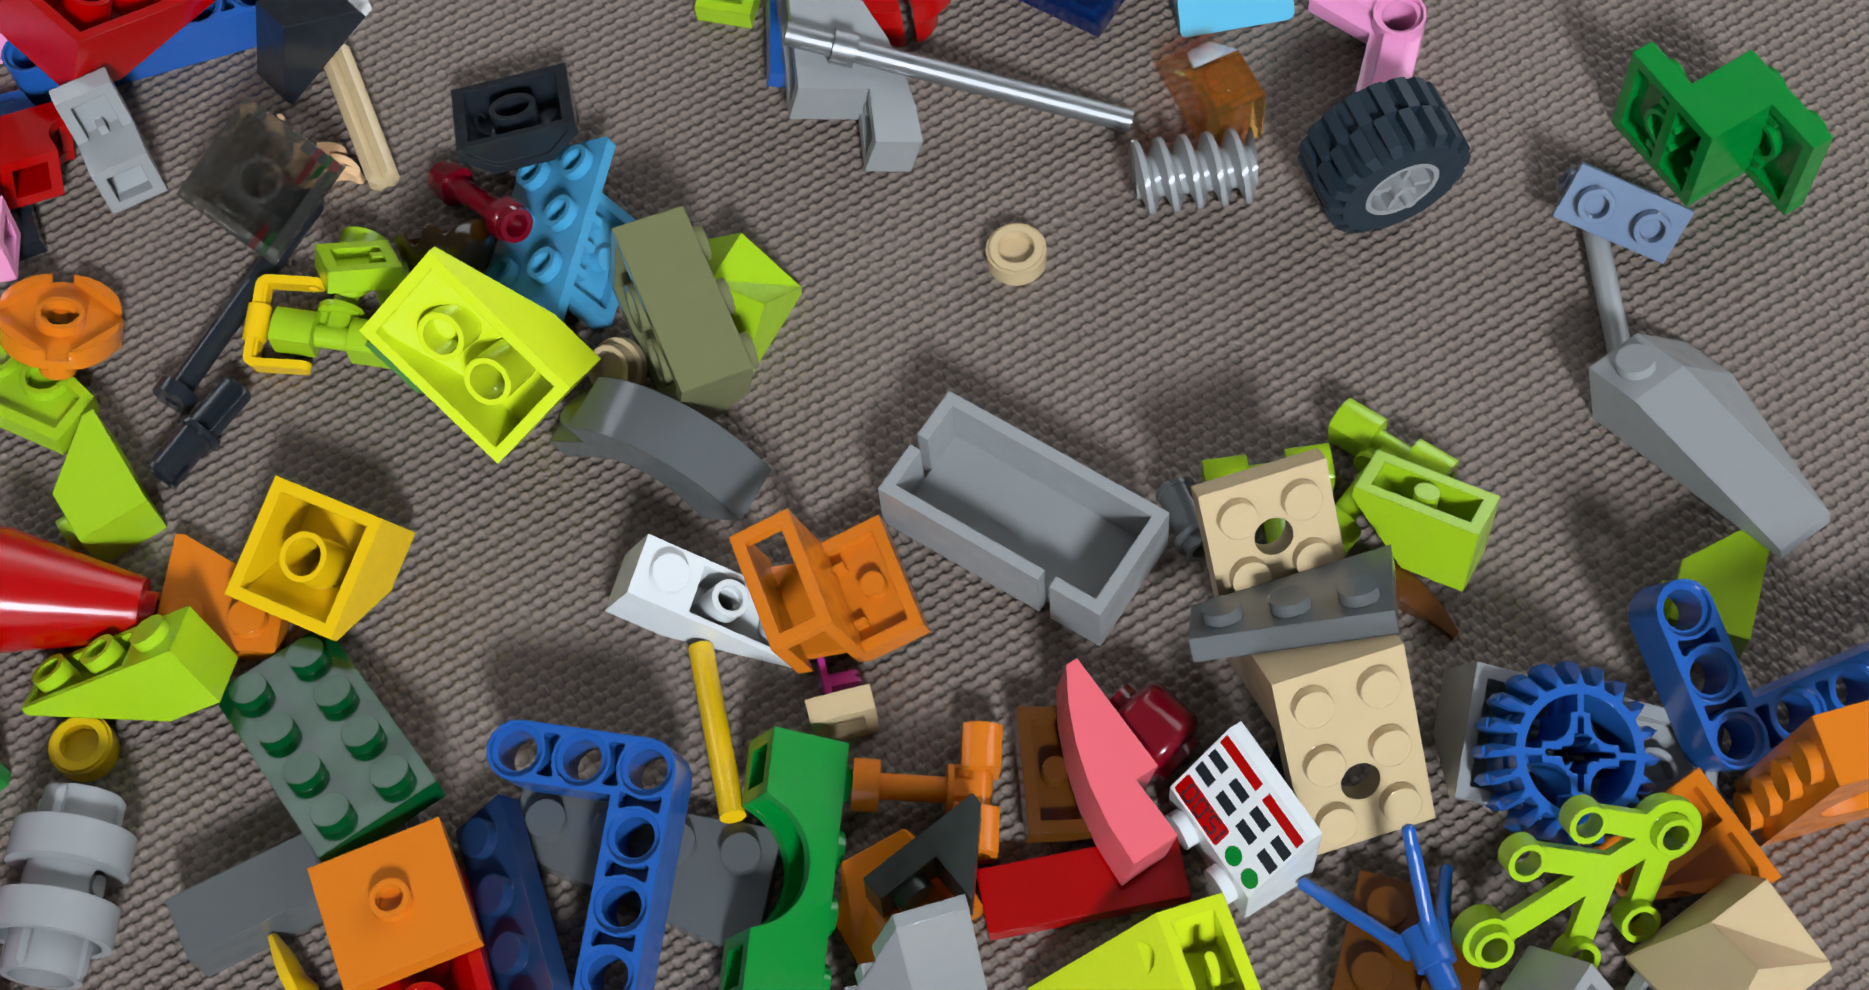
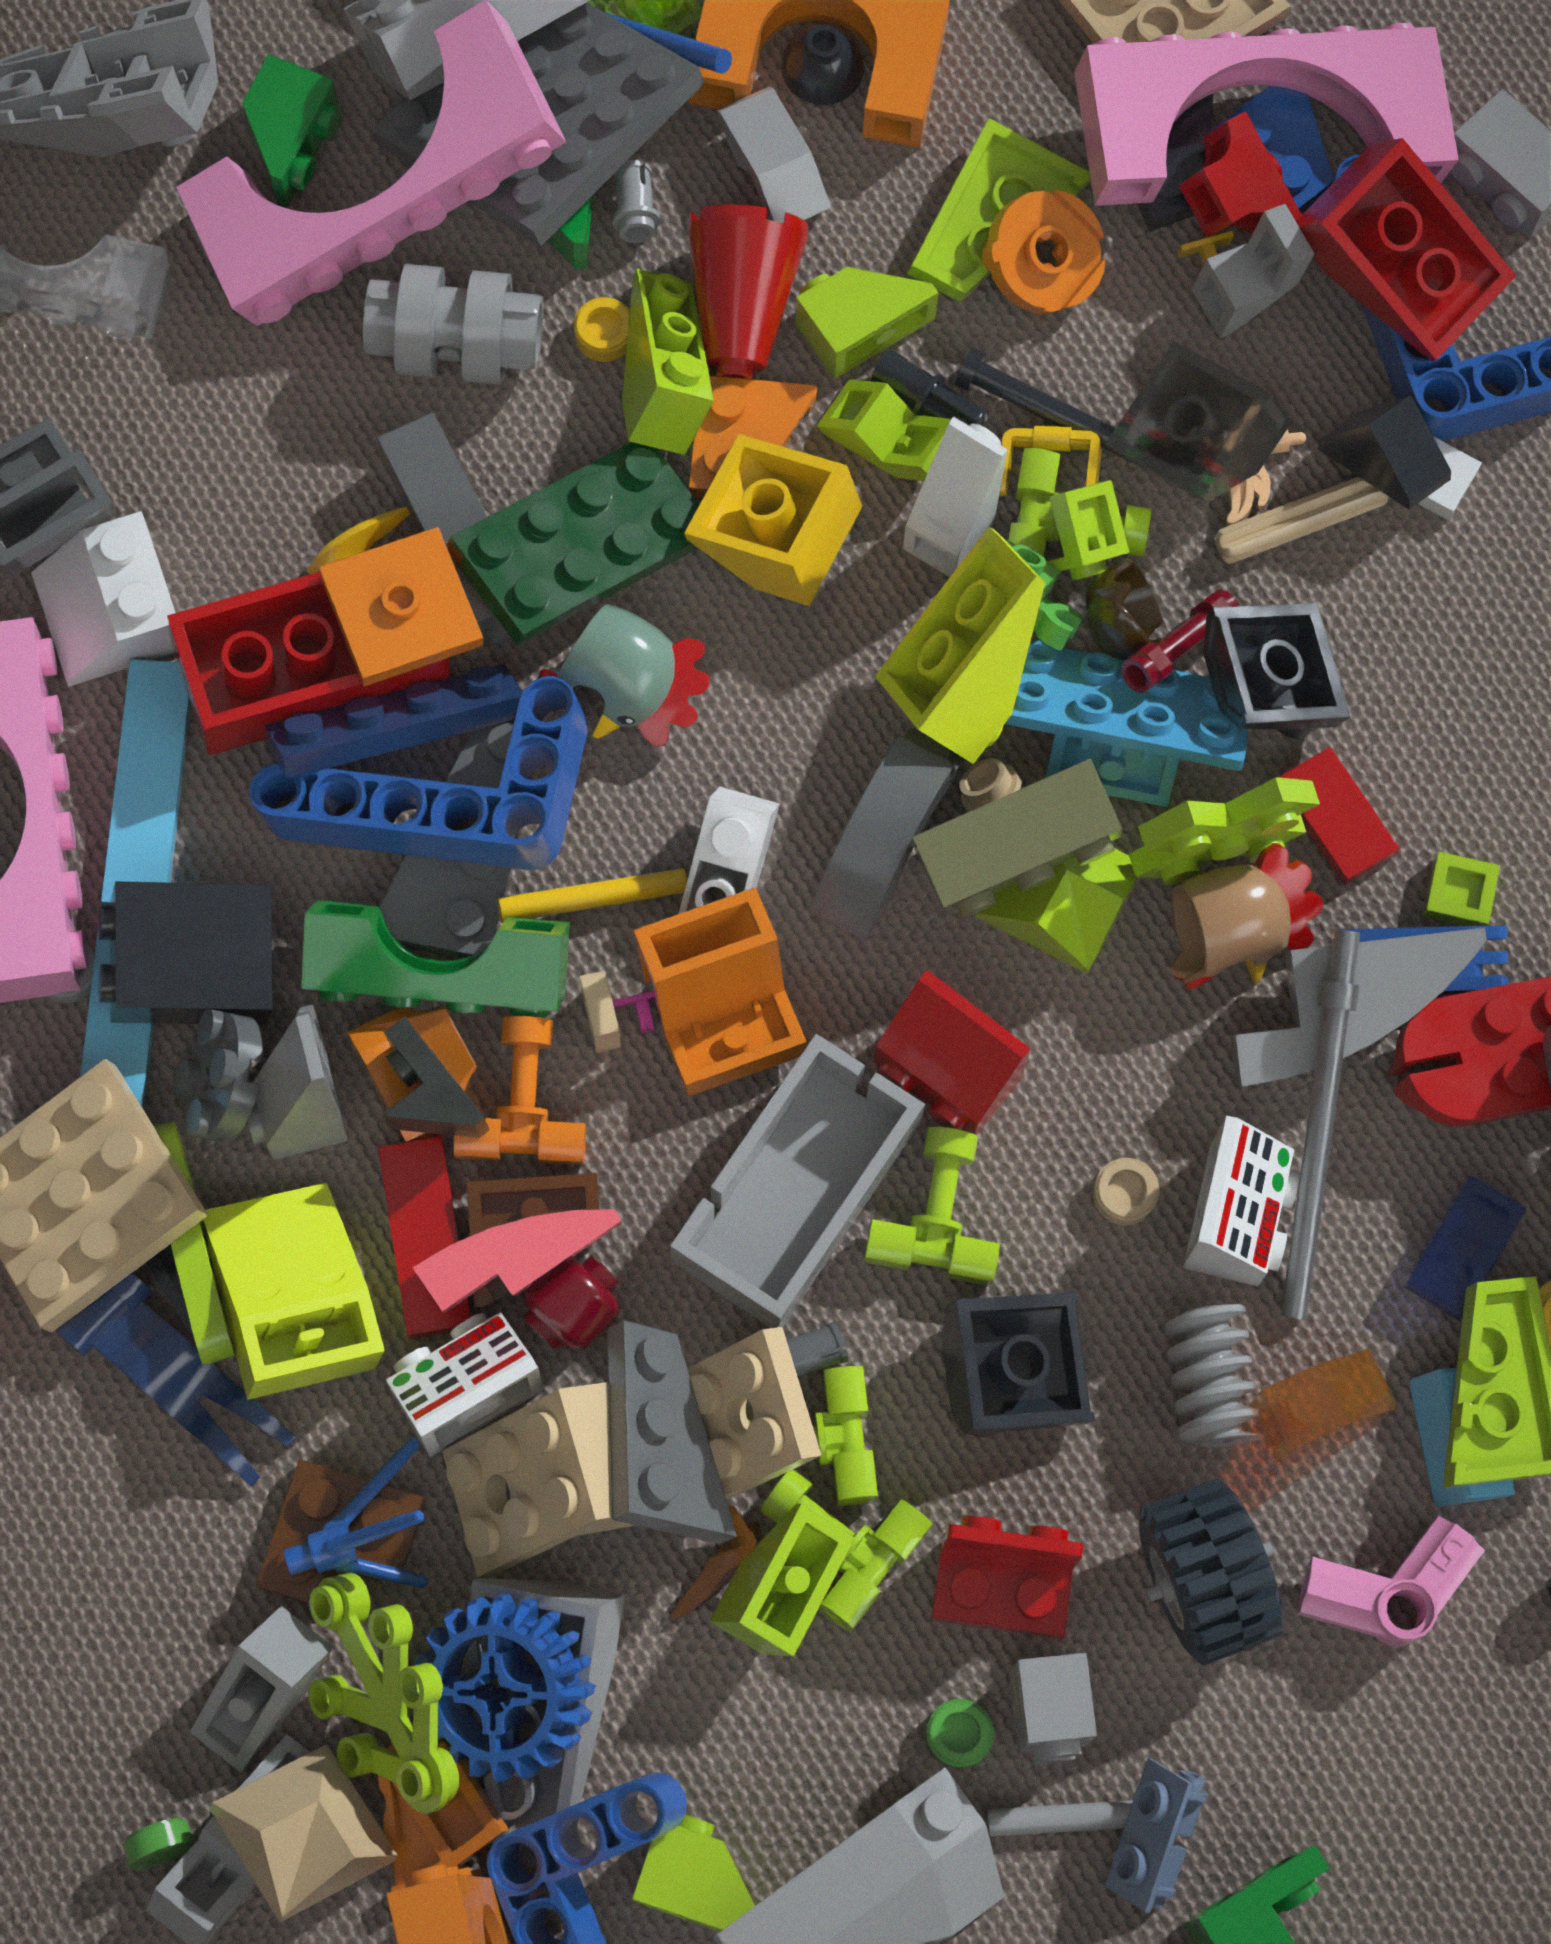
camera: 80 degrees right, 10 degrees up
(79, 197) = (1206, 246): none -> yellow piece
(227, 479) = (883, 429): none -> lime slope
(319, 377) = (956, 497): none -> white slope
(477, 688) = (637, 673): none -> sand green piece
(655, 88) = (1344, 822): none -> red tile
(681, 140) = (1206, 831): none -> lime plate
(747, 147) = (1242, 916): none -> medium nougat piece
(890, 381) = (950, 1056): none -> red slope
(1032, 154) = (1241, 1205): none -> white slope
(1070, 406) = (934, 1237): none -> lime bar
(1193, 333) = (1015, 1363): none -> black slope
(1395, 339) = (1005, 1577): none -> red bracket
(1519, 283) = (1052, 1707): none -> light grey brick
(1540, 382) = (959, 1733): none -> bright green tile

